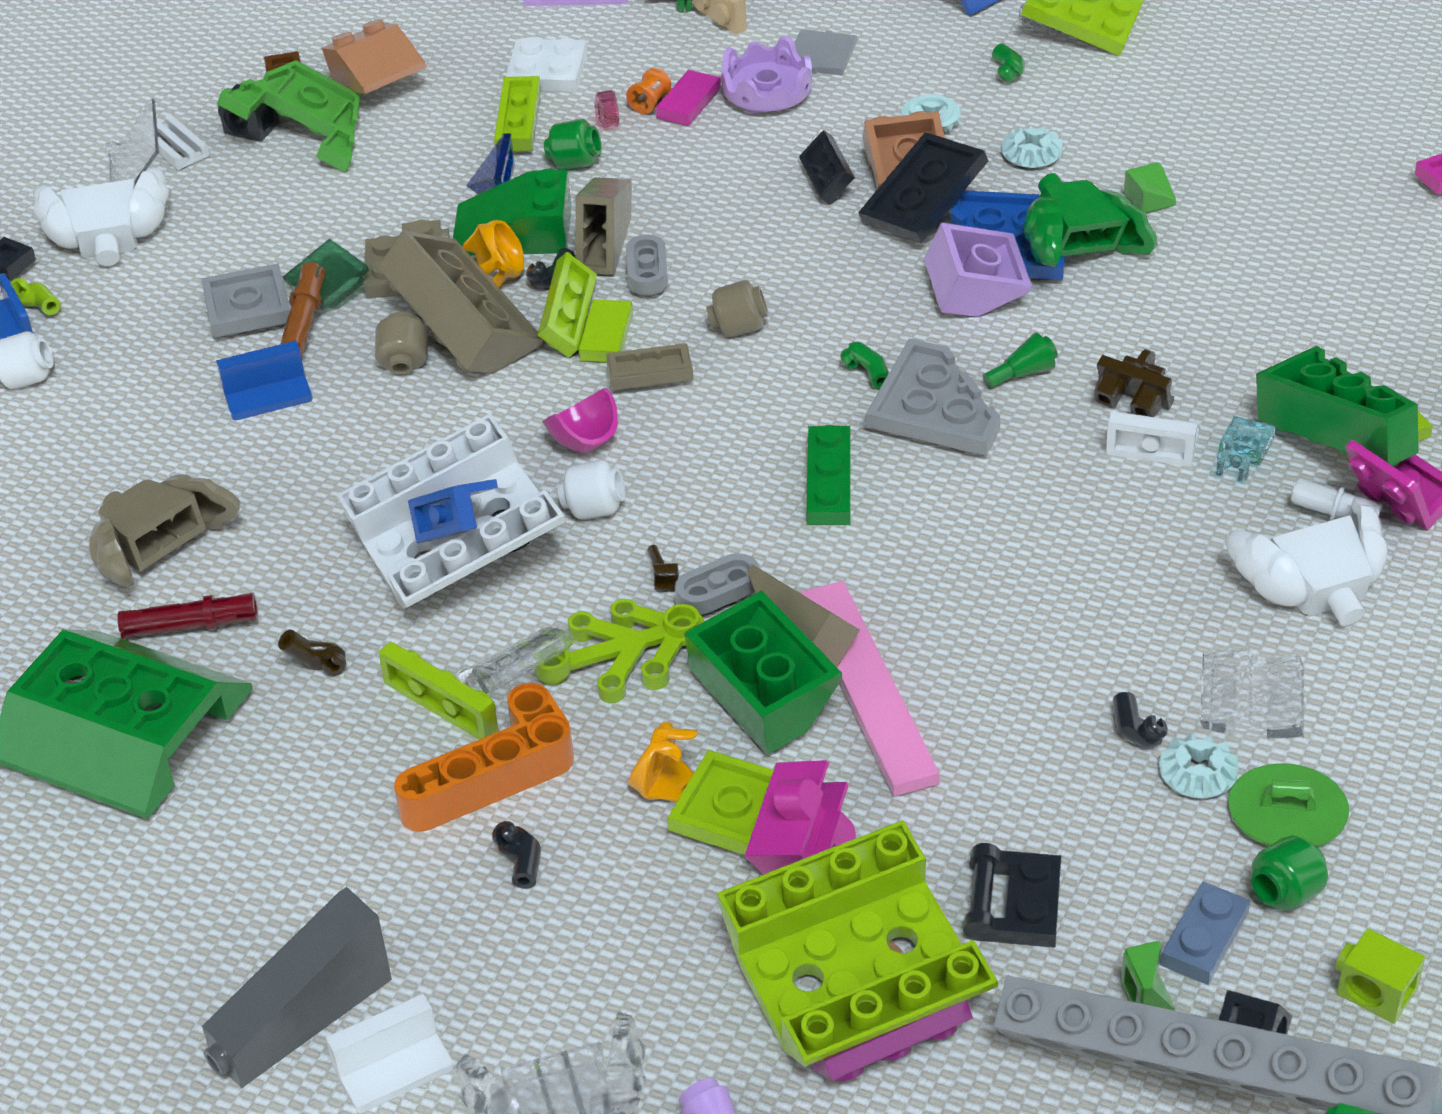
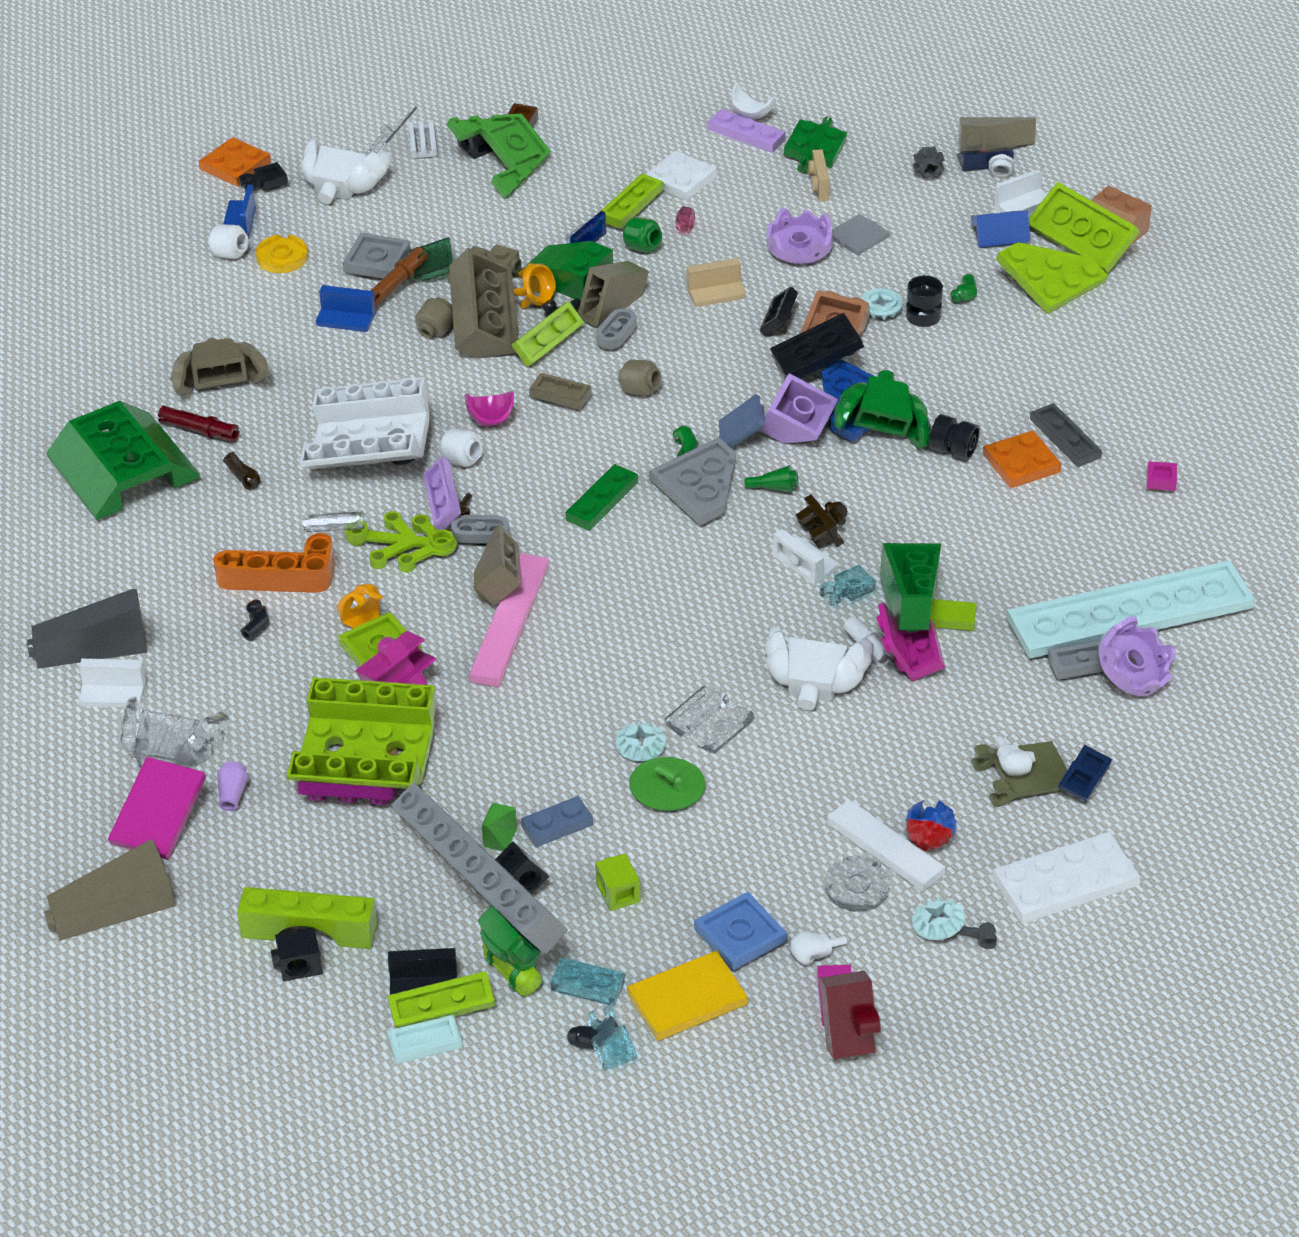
camera: 30 degrees right, 0 degrees up
(36, 296) = (268, 204): lime arm -> none
(105, 349) = (281, 254): none -> yellow tile
(372, 57) = (571, 128): nougat slope -> none
(438, 691) = (285, 518): lime plate -> none
(446, 511) = (353, 420): blue panel -> none
(605, 329) = (559, 358): lime tile -> none
(626, 560) = (442, 493): none -> lavender tile
(649, 101) = (730, 216): orange bush -> none
(688, 97) = (743, 232): dark pink tile -> none
(714, 165) = (715, 282): none -> tan panel
(762, 670) = (449, 582): green slope -> none
(920, 307) = (742, 422): none -> sand blue piece
(987, 89) = (924, 301): none -> black wheel
(1030, 897) = (482, 765): black plate -> none
(1032, 147) = (912, 354): light aqua gear -> none
(1143, 732) = (627, 703): black arm -> none
(1148, 188) = (964, 405): bright green slope -> none
(1185, 222) = (949, 435): none -> black wheel
(1270, 219) = (1022, 459): none -> orange plate
(1287, 173) = (1066, 435): none -> dark grey tile
(1289, 873) = (622, 812): green head -> none

